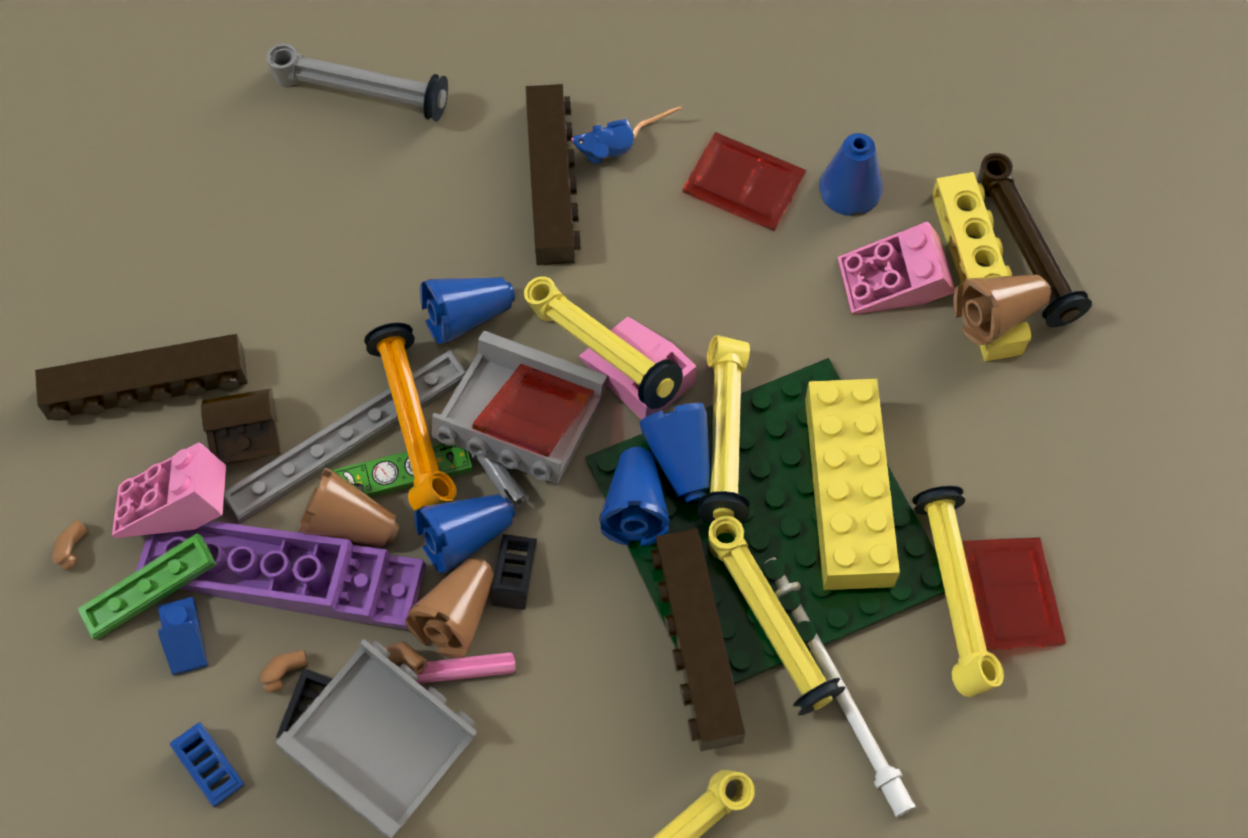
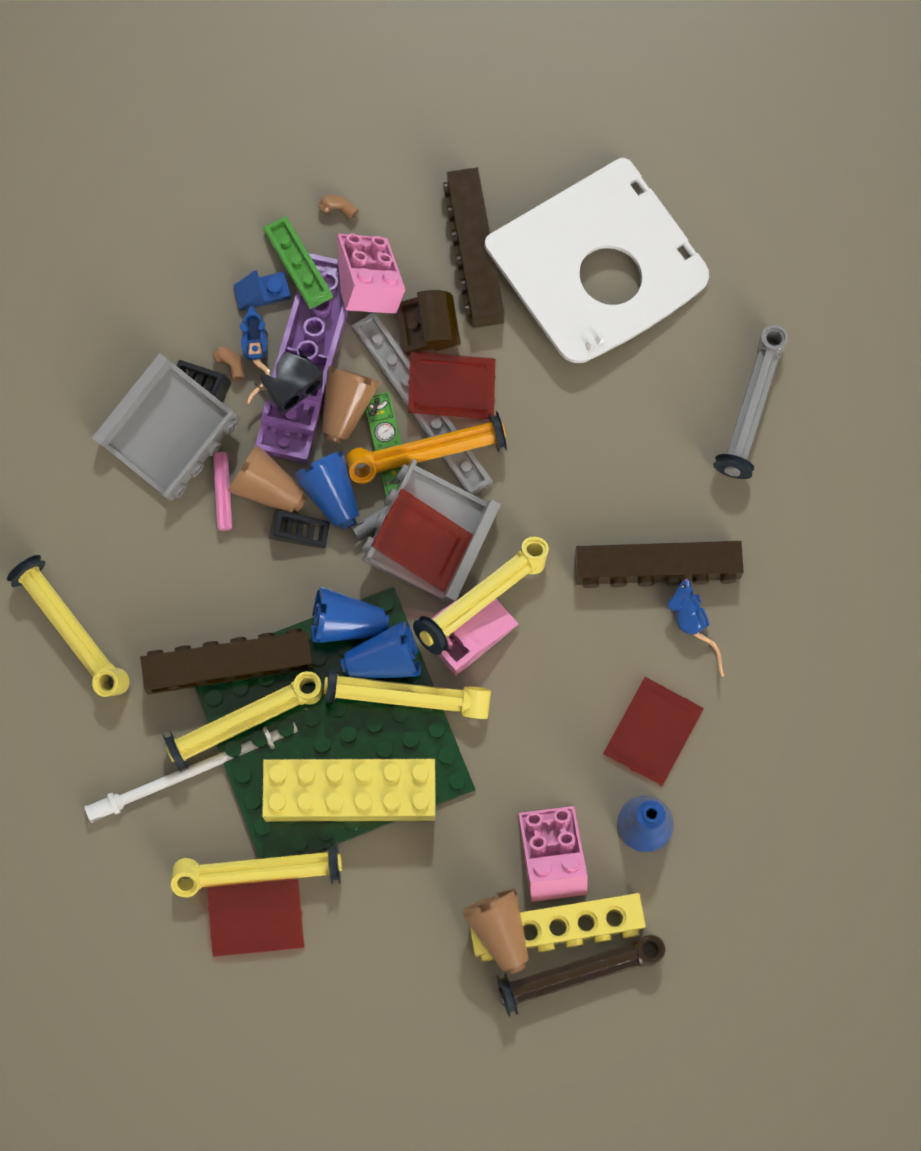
camera: 90 degrees right, 10 degrees up
(140, 286) = (547, 245): none -> white door
(187, 741) = (156, 306): blue slope -> none
(260, 633) = (254, 342): none -> blue animal
(320, 563) = (294, 381): none -> black piece
(325, 399) = (451, 385): none -> clear red piece
(404, 654) = (231, 445): medium nougat arm -> none
(463, 304) = (529, 490): blue cone -> none

